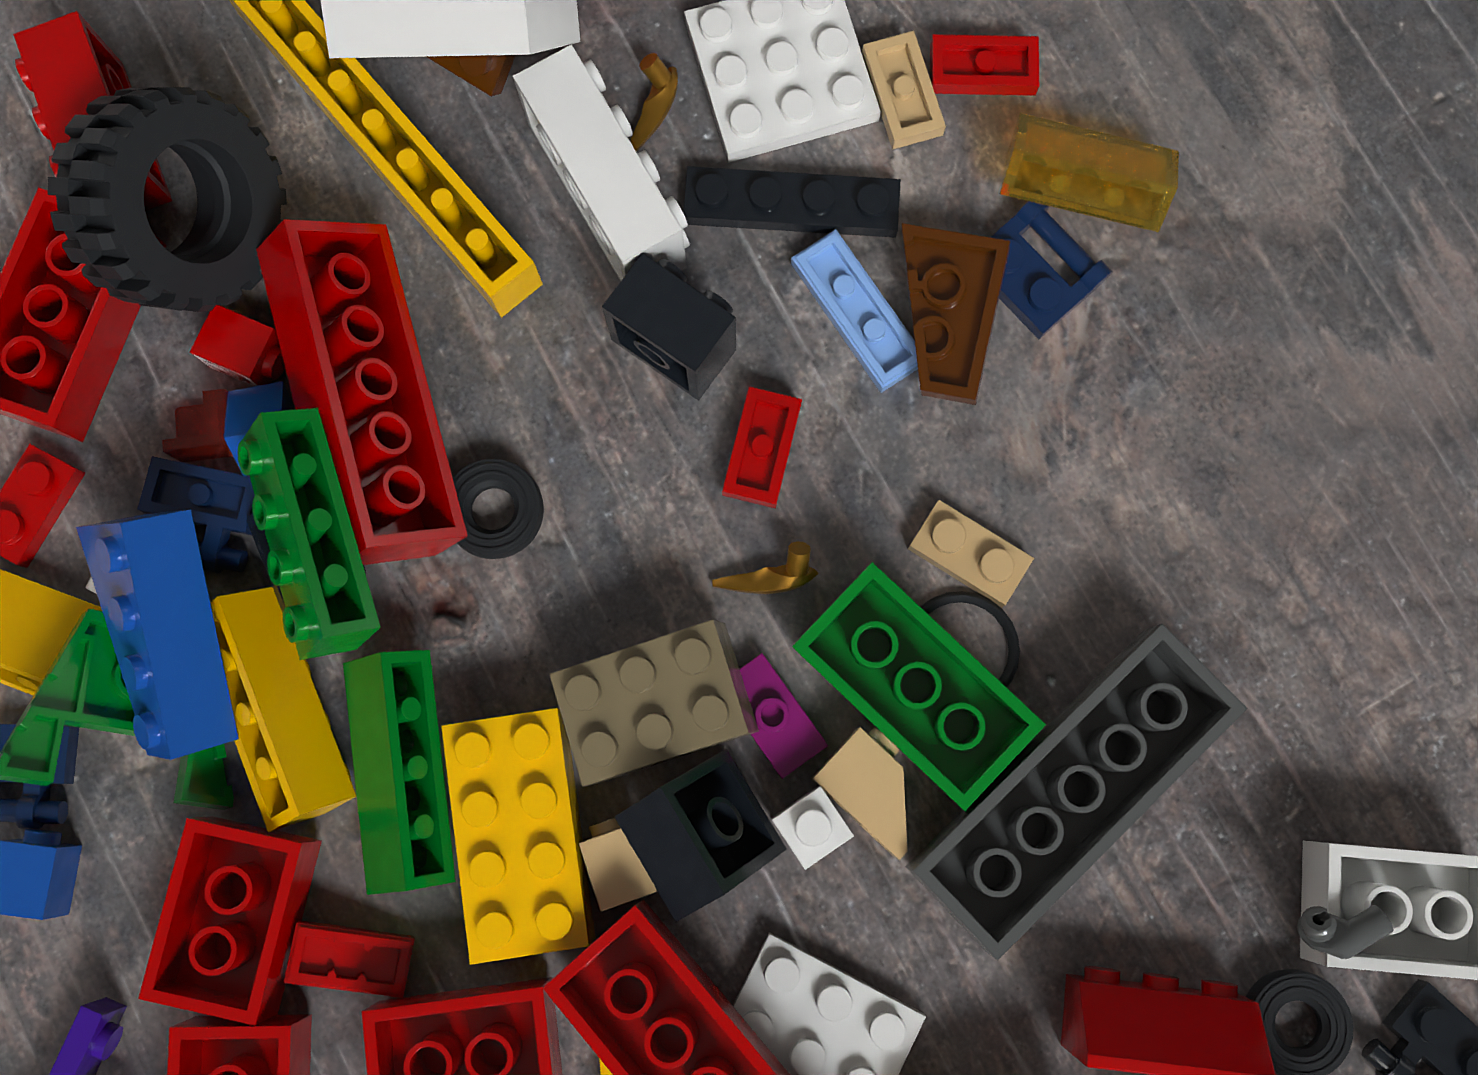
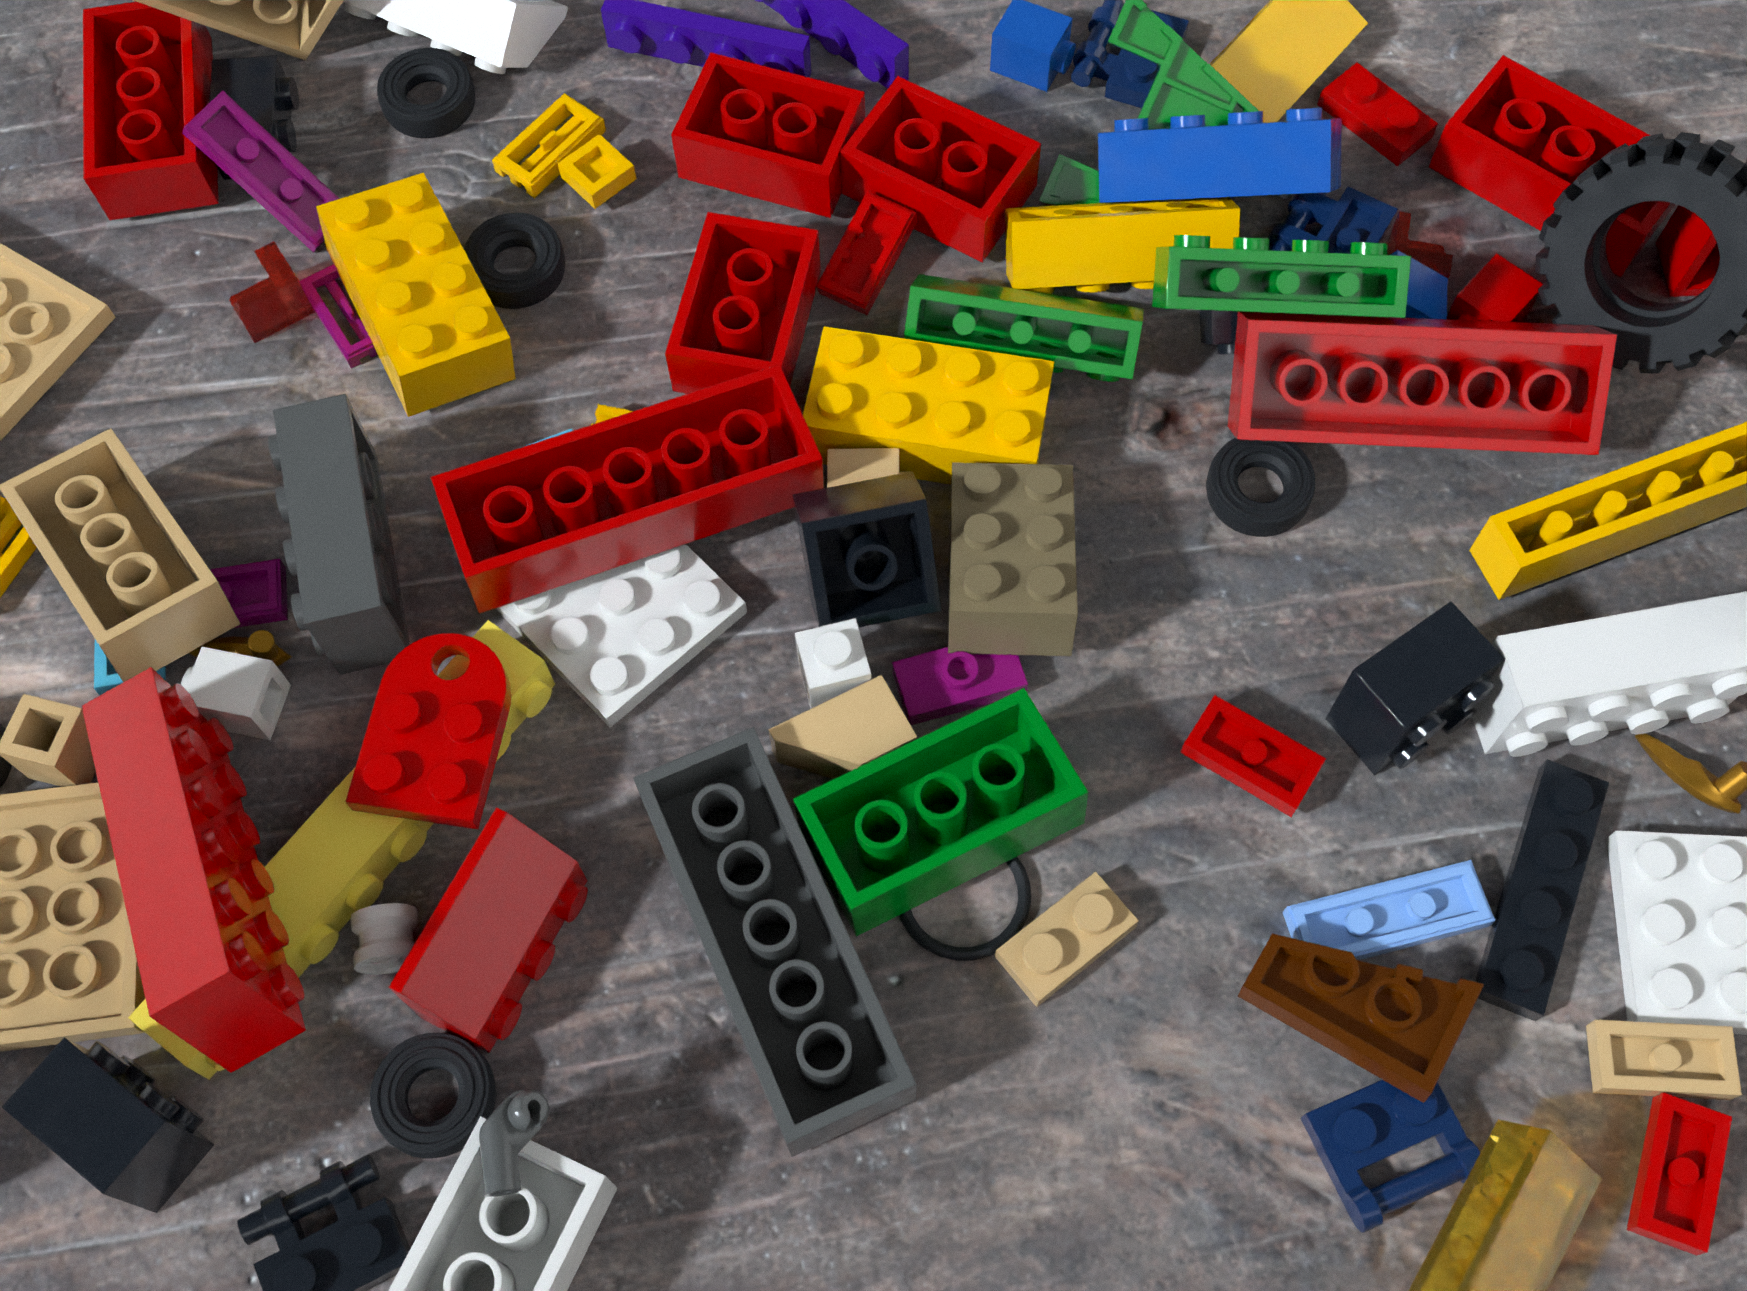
camera: 110 degrees right, 15 degrees down
(774, 579) = (1101, 737): pearl gold bar -> none

